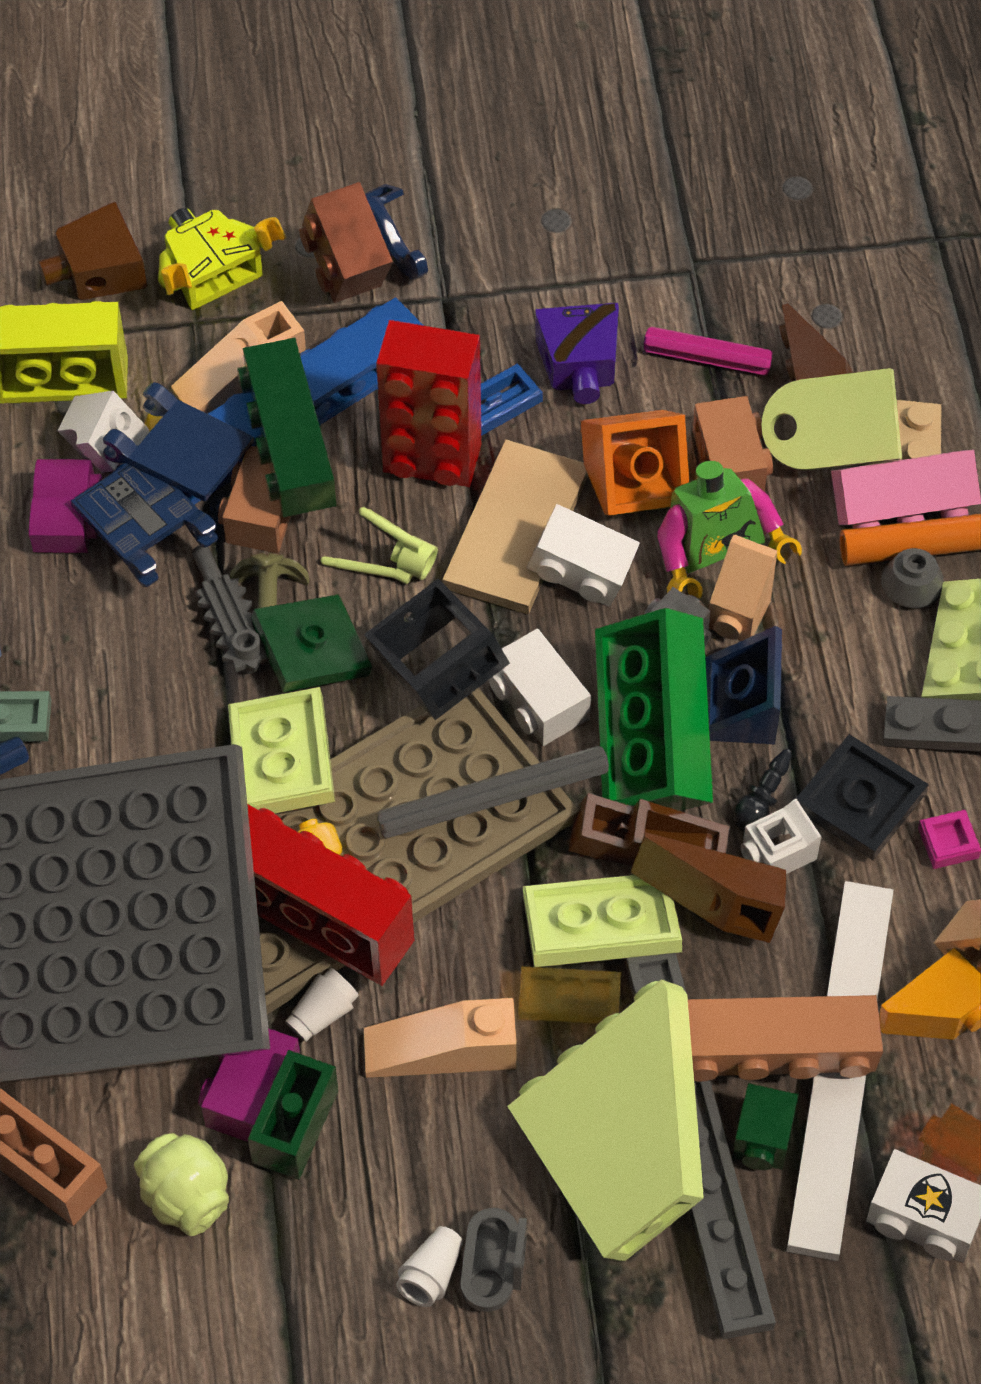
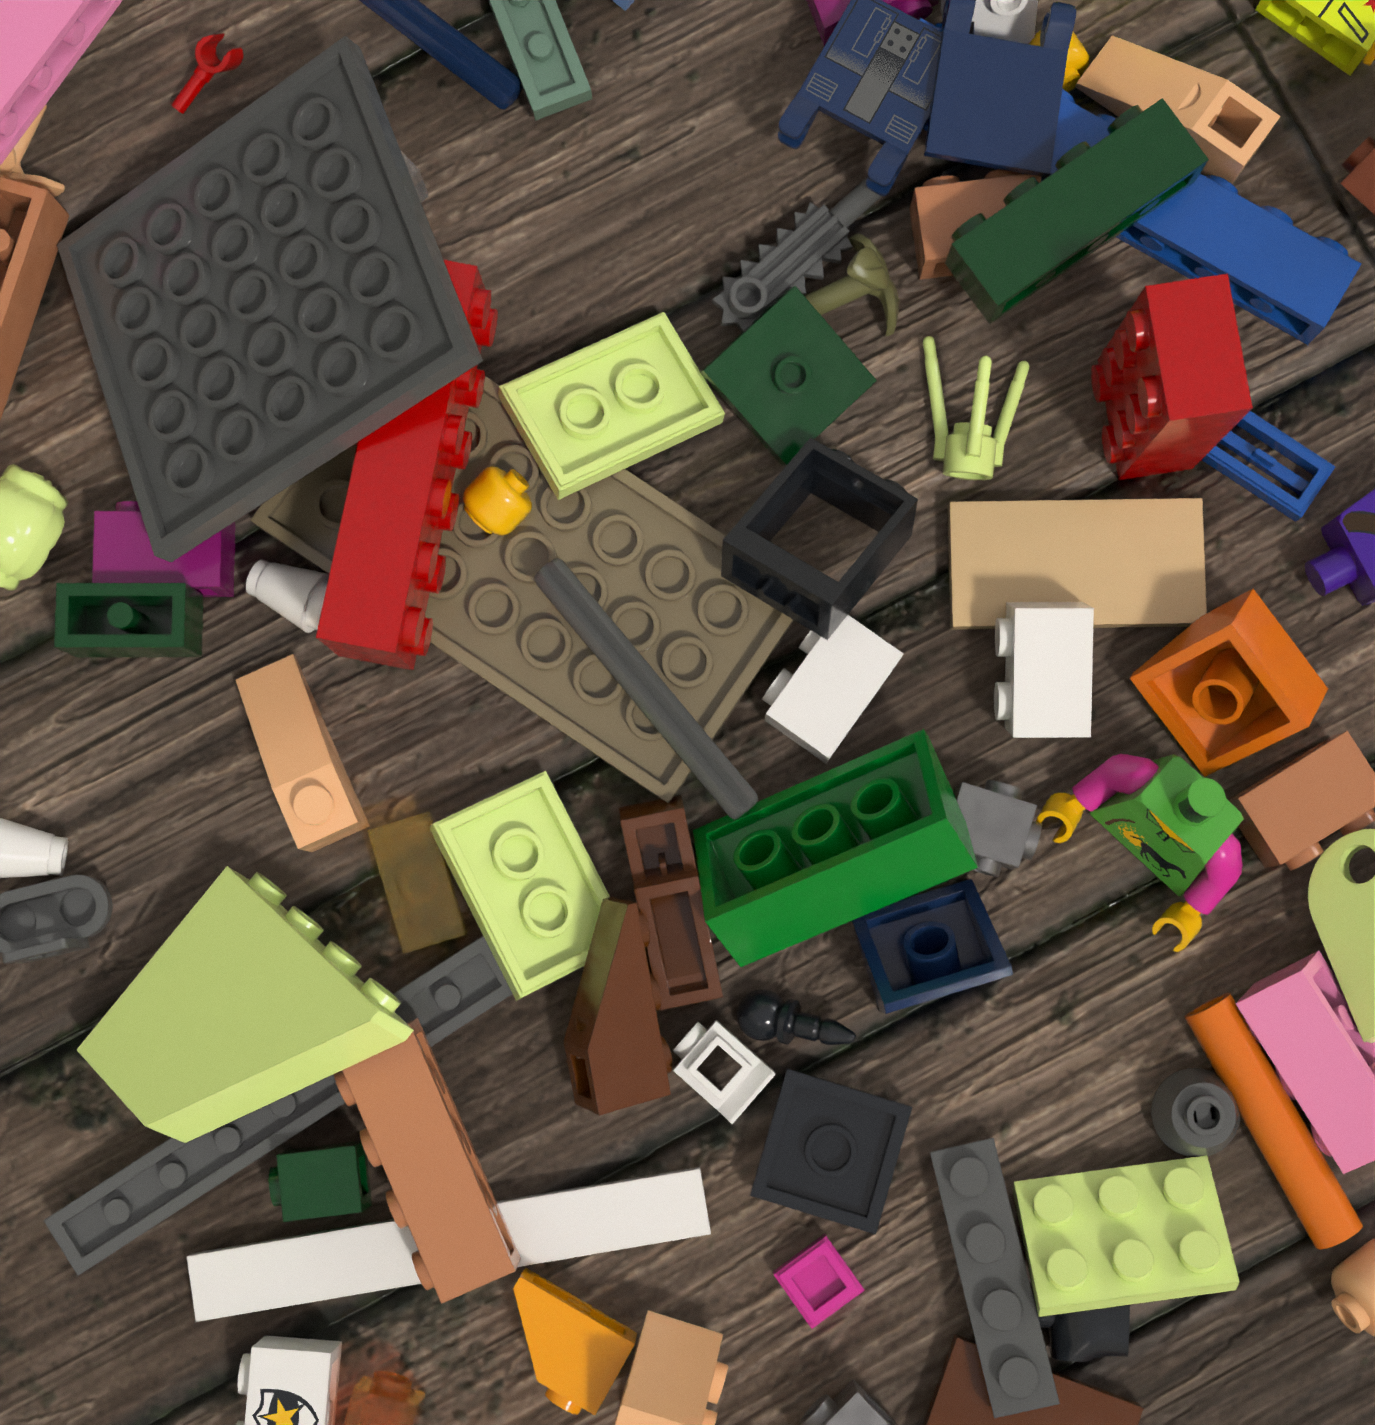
camera: 75 degrees right, 25 degrees up
(742, 589) = (1067, 896): light nougat slope -> none

